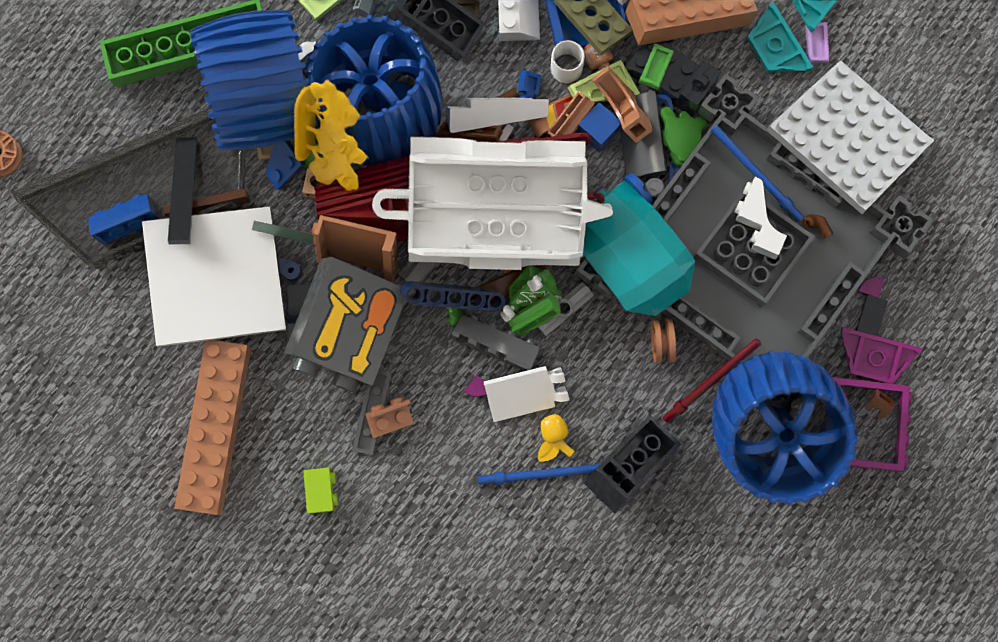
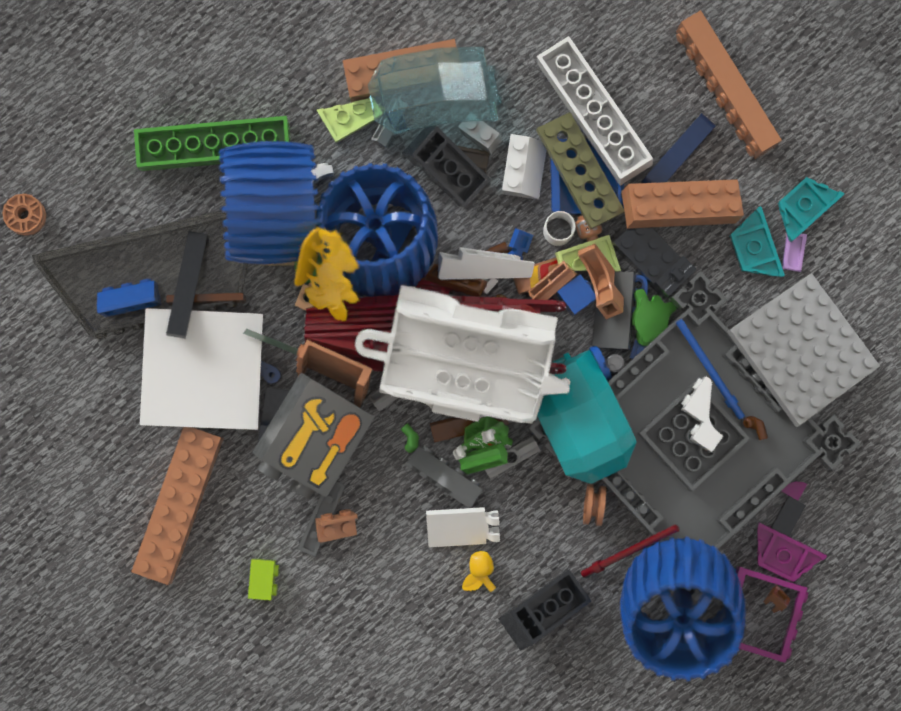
camera: 10 degrees right, 5 degrees up
(283, 164) = (280, 277): blue wing -> none
(443, 294) = (405, 425): dark blue beam -> none
(476, 387) = (419, 513): magenta tile -> none
(500, 477) = (425, 598): blue bar -> none
(656, 66) = (639, 251): bright green tile -> none

